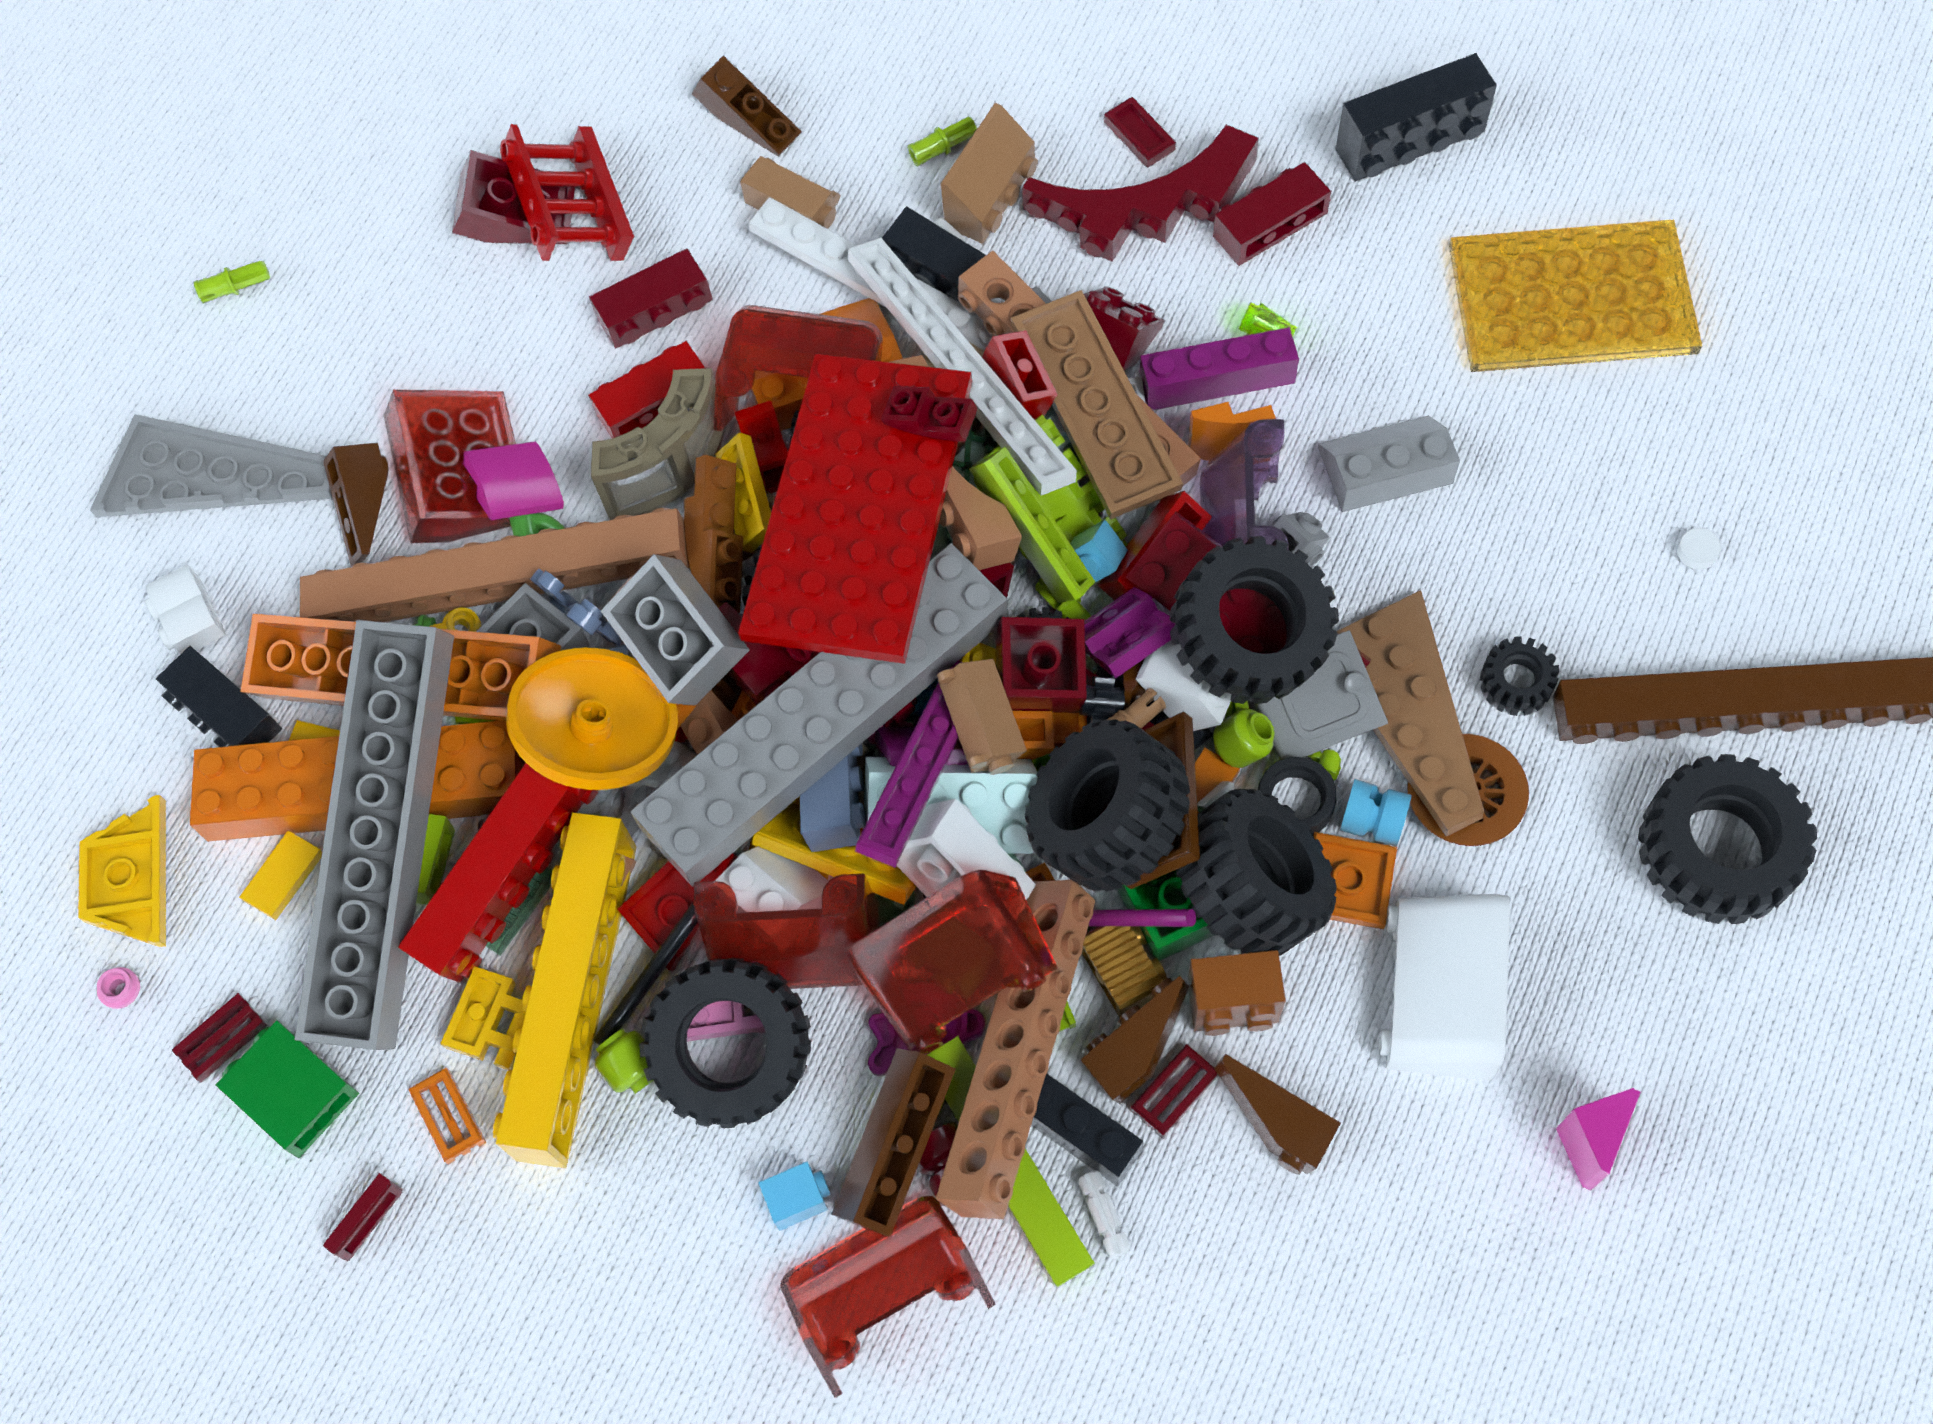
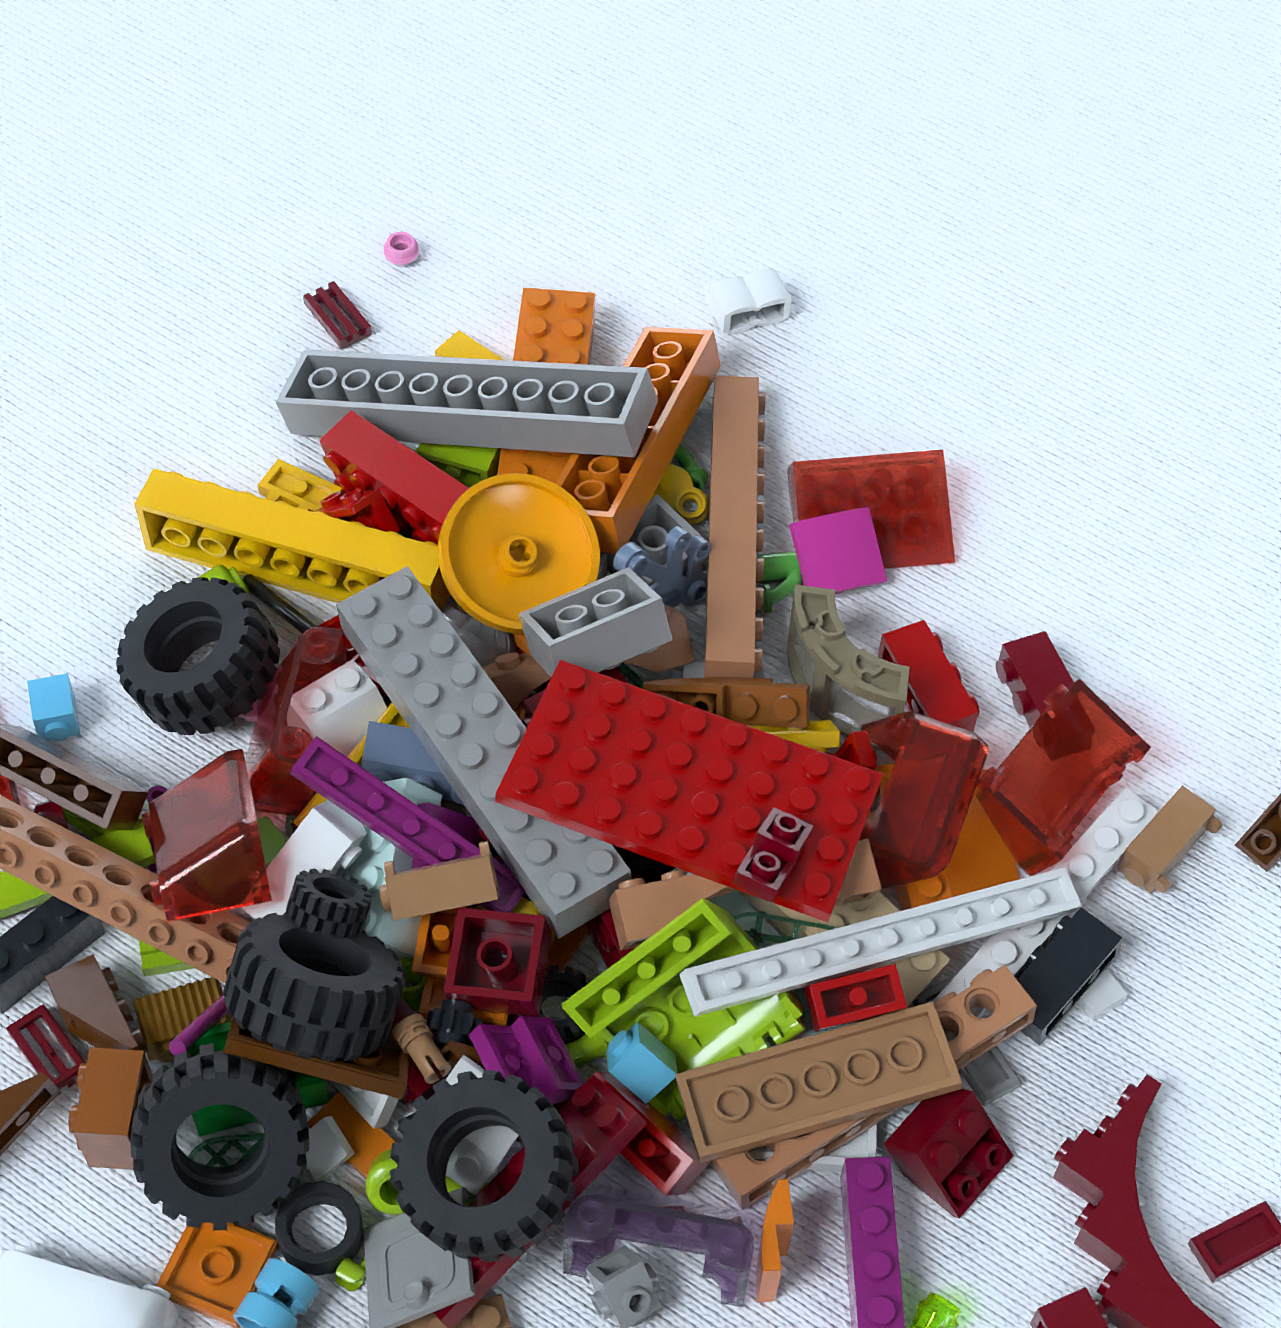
camera: 90 degrees right, 10 degrees down
(126, 875) = (500, 255): yellow wing -> none
(192, 468) = (899, 317): light grey wing -> none
(215, 702) = (665, 304): black brick -> none
(231, 281) = (1113, 349): lime axle -> none
(286, 1089) = (266, 351): green brick -> none
(357, 486) = (851, 429): reddish brown slope -> none
(363, 1217) = (145, 398): dark red tile -> none
(462, 1145) = (221, 470): orange tile -> none
(490, 205) = (1182, 582): dark red slope -> none
(520, 927) = (361, 507): none -> red bracket
(591, 176) = (1168, 657): red fence -> none
(720, 252) = (1057, 775): none -> clear red windscreen
(941, 141) = (1238, 1012): lime axle -> none
(988, 175) = (1171, 1041): medium nougat slope -> none
(1019, 812) = (329, 903): none -> black tyre

